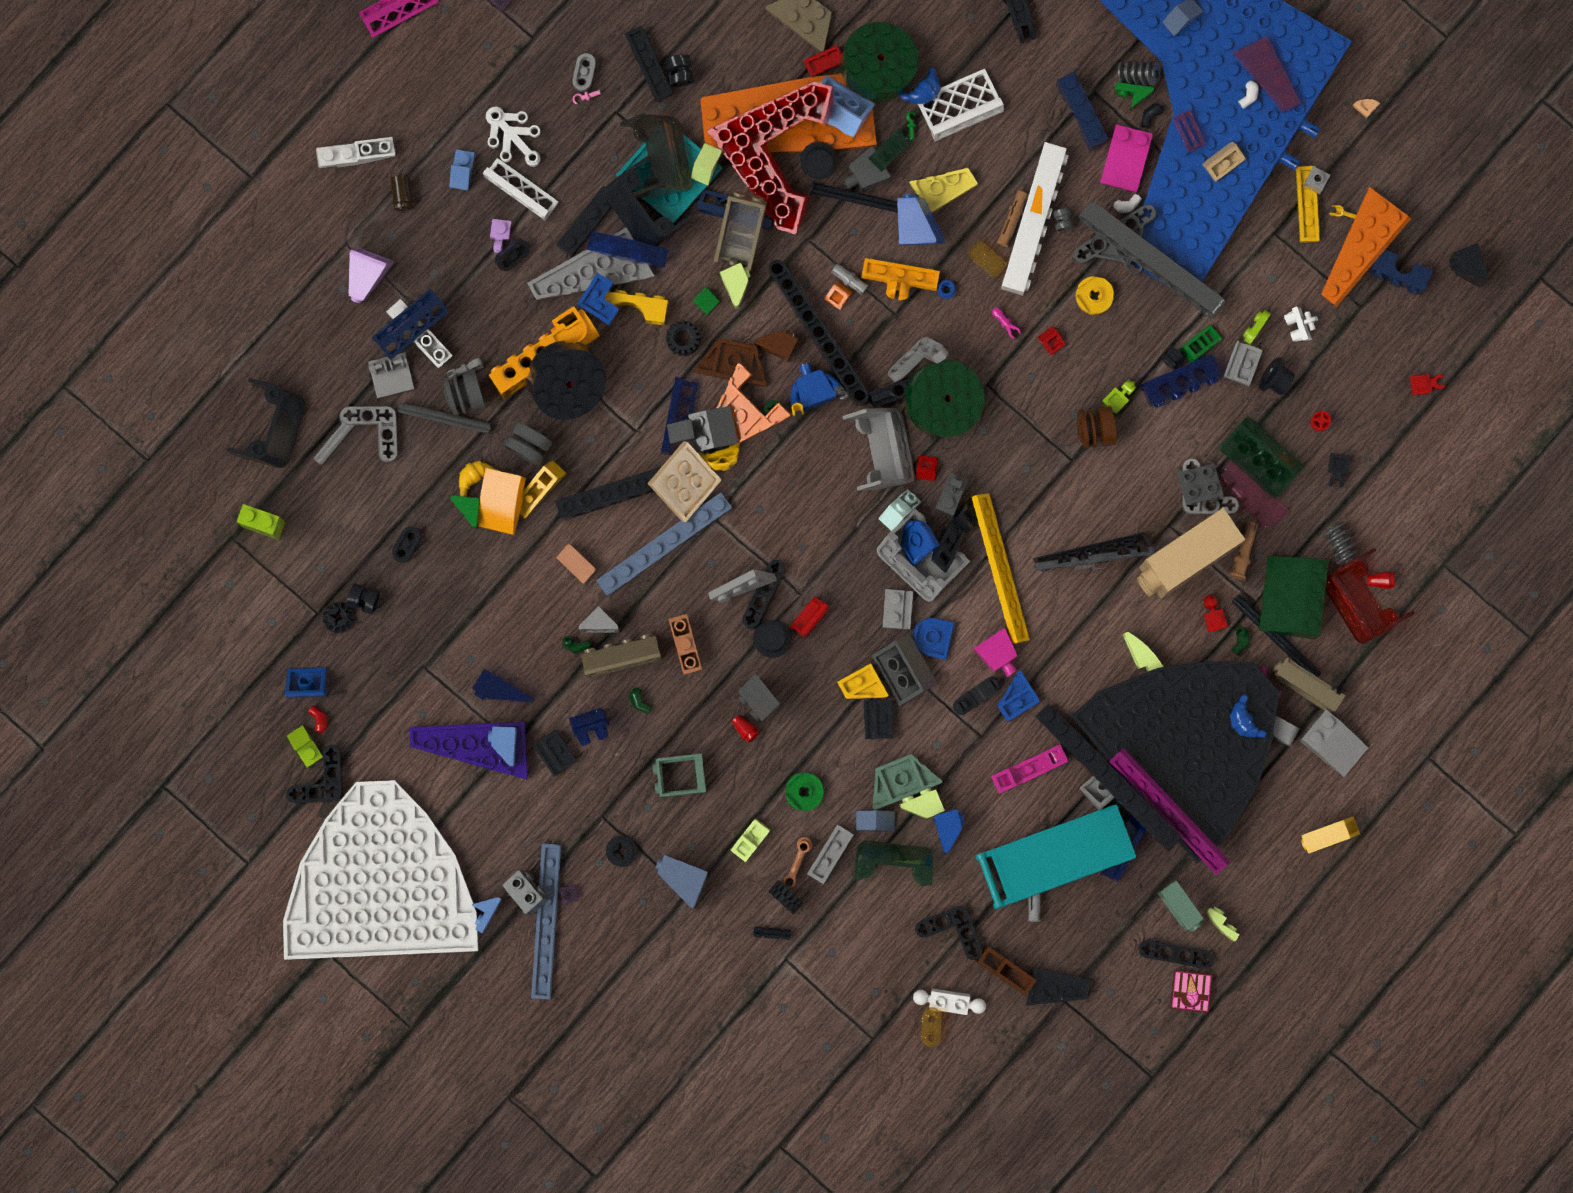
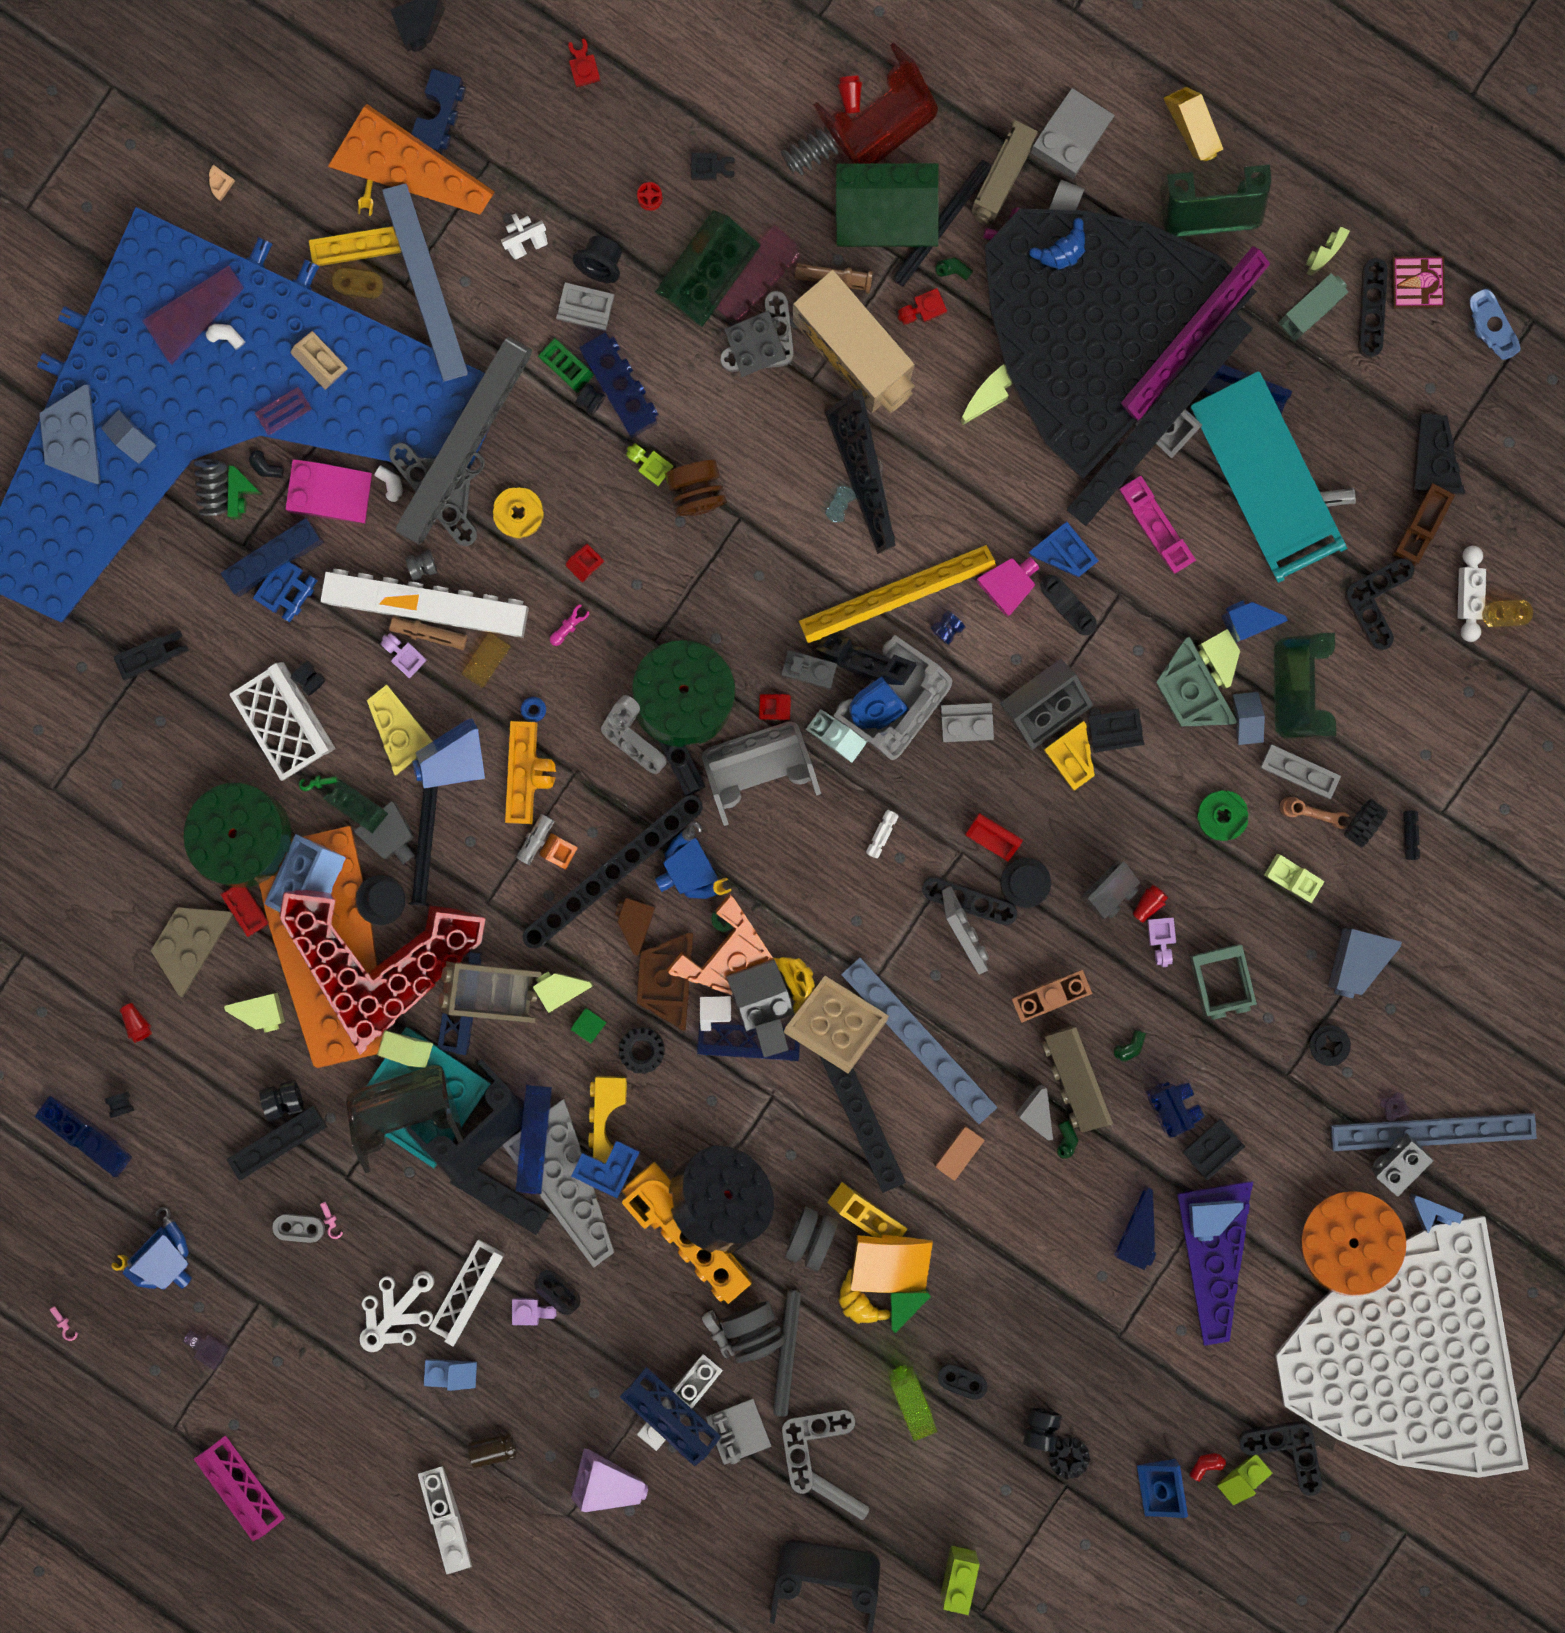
camera: 95 degrees left, 5 degrees up
(396, 504) = (912, 1402): none -> clear neon green window
(489, 842) = (1357, 1218): none -> orange piece
(706, 394) = (714, 1010): none -> white panel
(721, 735) = (1162, 933): none -> lavender plate
(746, 62) = (259, 1012): none -> yellowish green slope
(821, 535) = (882, 834): none -> white axle
(925, 90) = (269, 769): blue piece -> none
(933, 637) = (998, 671): blue tile -> none
(970, 598) = (942, 630): none -> clear blue wheel
(989, 127) = (308, 678): none -> black wheel
(995, 202) = (407, 658): none -> lavender plate
(1061, 114) = (277, 587): none -> blue plate
(1073, 535) = (840, 504): none -> clear light blue piece
(1166, 1039) = (1503, 342): none -> medium blue piece
(1258, 842) = (1215, 214): none -> clear green windscreen
(1260, 320) = (525, 289): lime plate -> none
(1273, 246) = (424, 282): none -> sand blue tile
(1279, 199) = (359, 282): none -> clear yellow plate
(1313, 185) = (333, 242): light grey plate -> none

